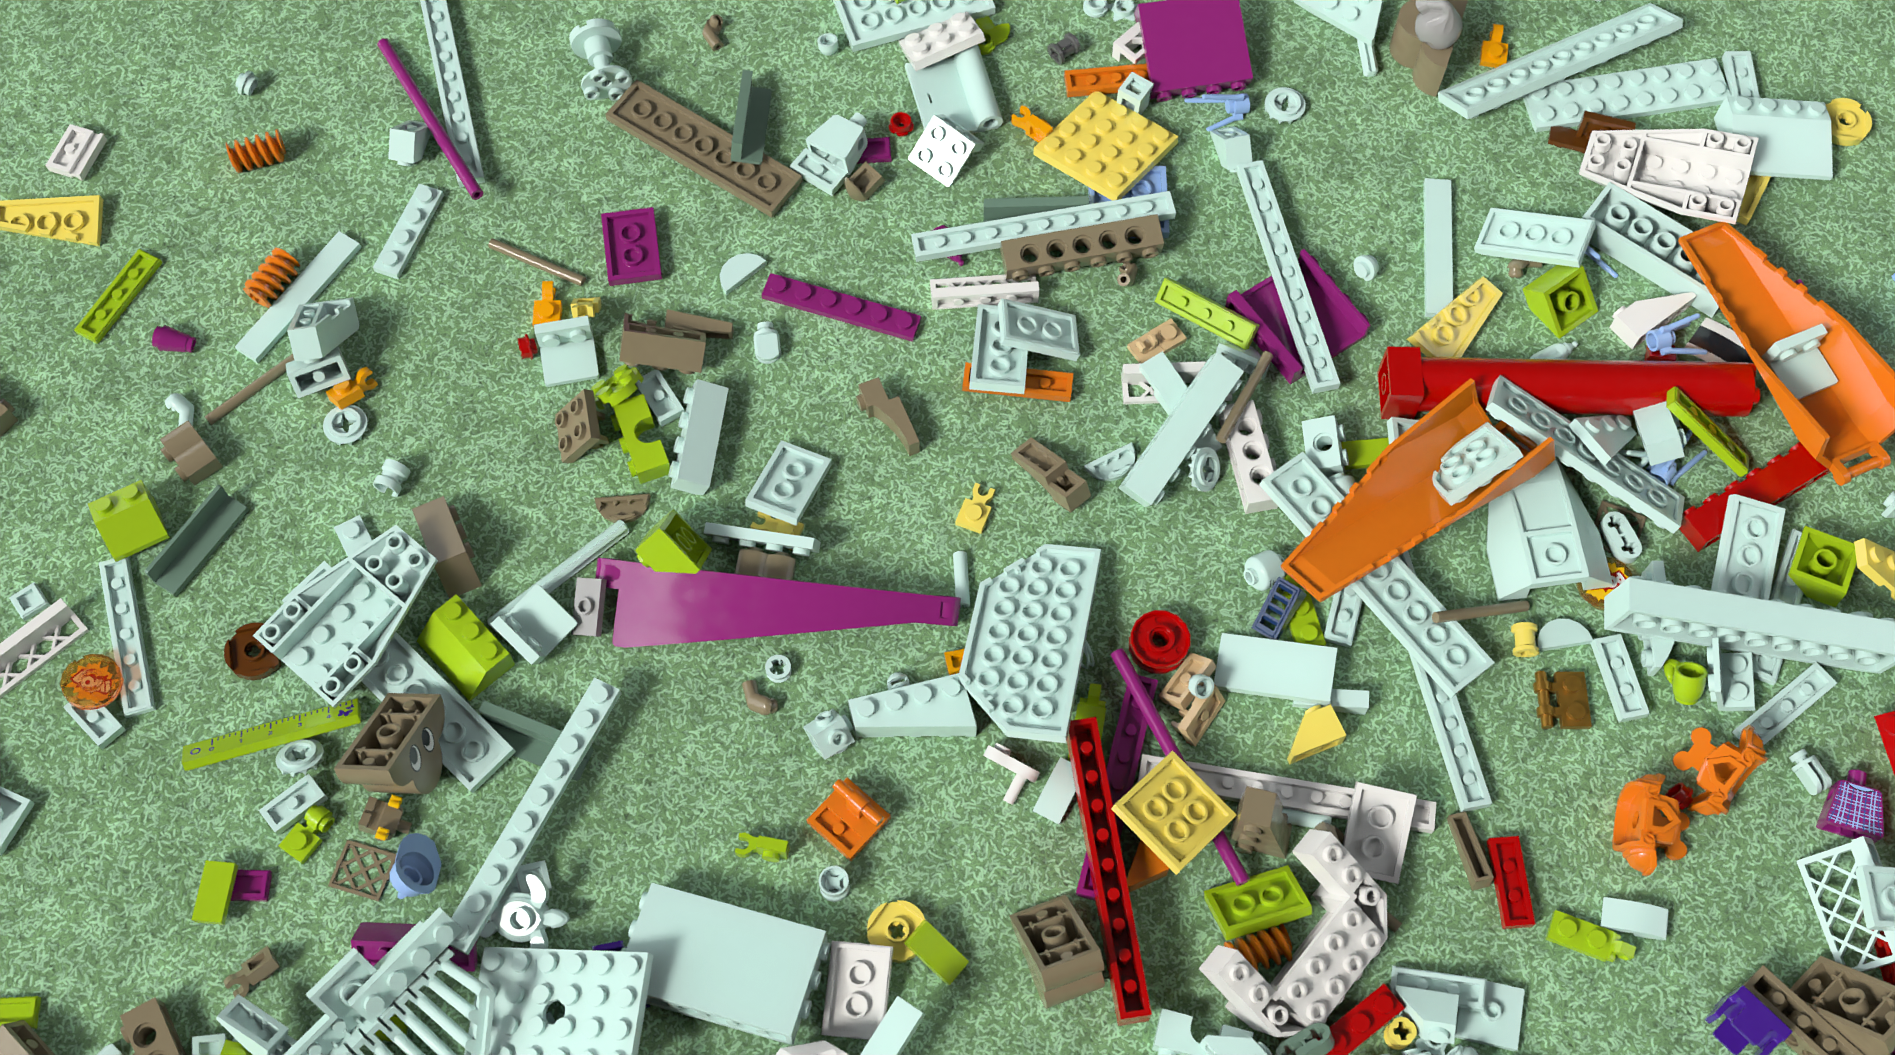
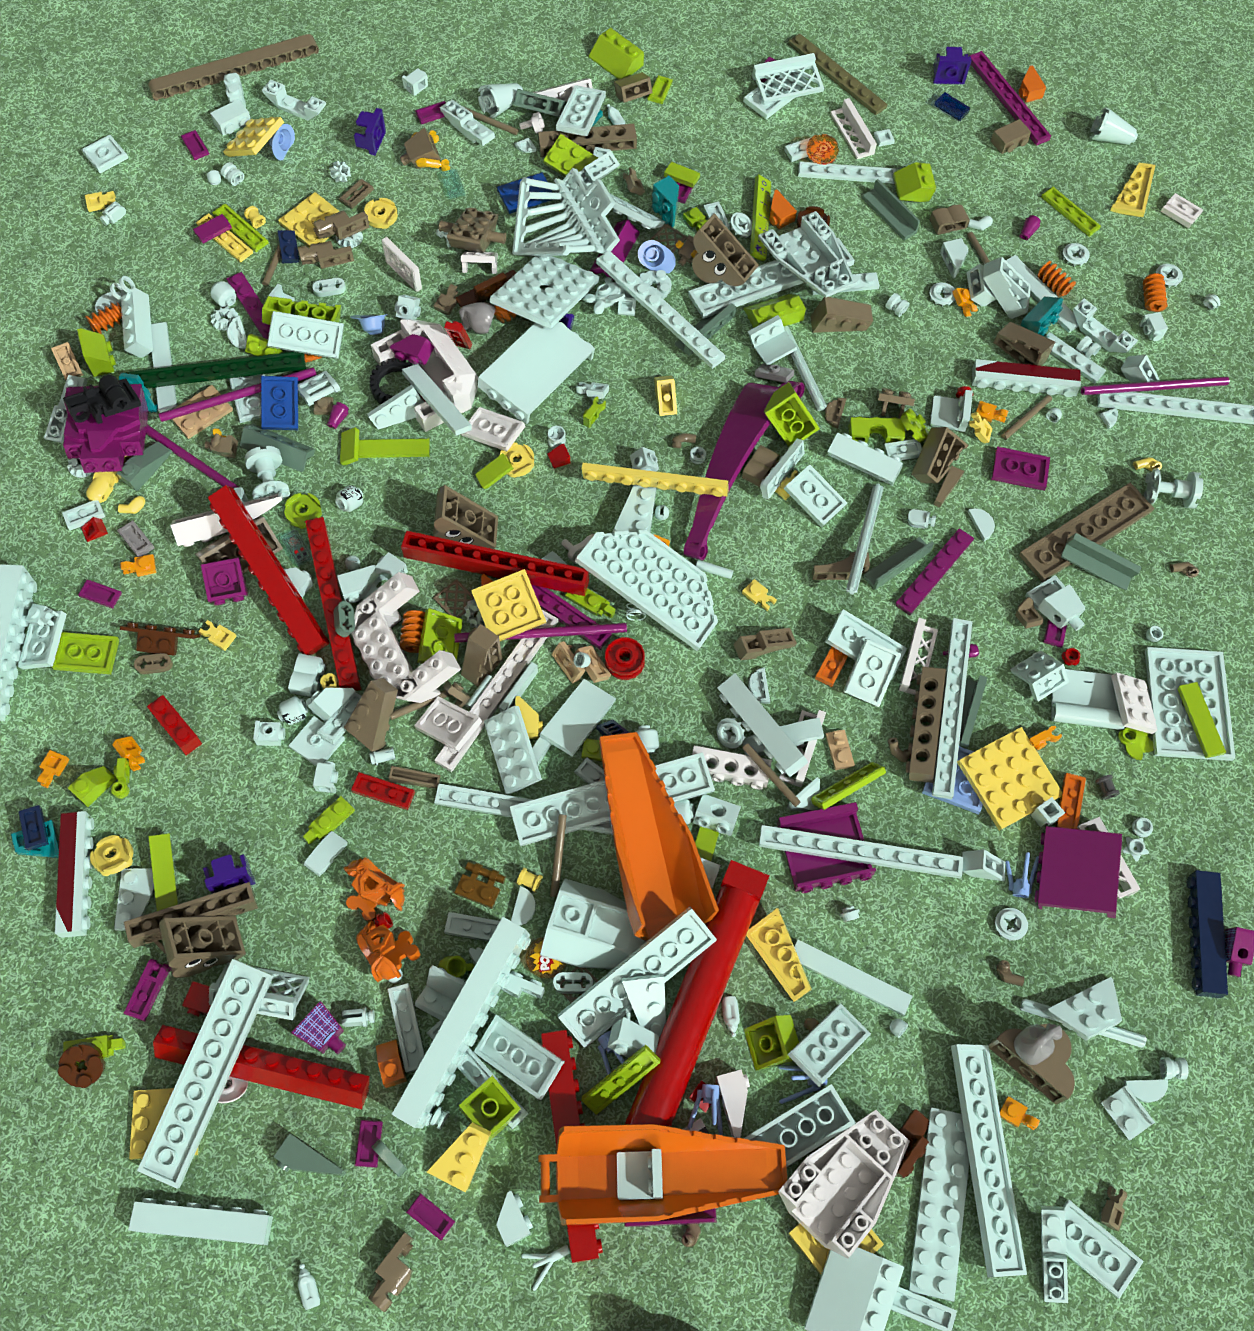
camera: 110 degrees right, 0 degrees up
(203, 260) = (1074, 248): none -> light aqua gear
(206, 137) = (1176, 274): none -> light aqua gear
(248, 707) = (781, 212): none -> orange slope
(268, 424) = (954, 255): none -> light aqua slope
(292, 886) = (665, 199): none -> teal slope
(319, 140) = (1154, 326): none -> light aqua brick
(329, 938) = (636, 214): none -> light aqua plate
(345, 217) = (1099, 333): none -> light aqua slope
(355, 274) = (1043, 315): none -> teal slope
(386, 212) = (1088, 347): none -> light aqua wheel
(405, 965) = (599, 227): light aqua plate -> none
(416, 287) = (1024, 344): none -> dark tan wedge
(455, 844) = (660, 278): none -> light aqua plate
(471, 276) = (1026, 377): none -> light aqua brick
(499, 163) = (1109, 417): none -> light aqua tile
(518, 226) = (1055, 413): none -> light aqua hinge
(561, 102) = (1148, 463): none -> light yellow arm
(687, 751) = (665, 395): none -> light yellow slope
(718, 862) = (593, 389): none -> light aqua plate
(838, 393) = (864, 540): none -> light aqua axle
(848, 818) = (590, 452): orange plate -> none
(849, 350) = (897, 563): none -> sand green panel
(863, 869) = (559, 456): none -> red slope
(878, 701) = (655, 479): none -> light yellow plate
(1164, 940) = (446, 590): none -> dark tan window
(1189, 884) = (470, 611): none -> light aqua gear
(1274, 763) = (519, 687): none -> light aqua tile
(1346, 94) = (1006, 975): none -> dark tan arm
(1370, 728) = (512, 750): none -> light aqua plate
(1424, 937) = (372, 714): none -> dark tan wedge
(1462, 908) = (382, 756): none -> light aqua pin
(1468, 181) = (898, 1027): none -> light aqua hinge
(1474, 463) = (655, 884): light aqua plate -> none
(1535, 969) = (325, 777): none -> light aqua brick
(1838, 706) = (390, 1064): none -> orange slope

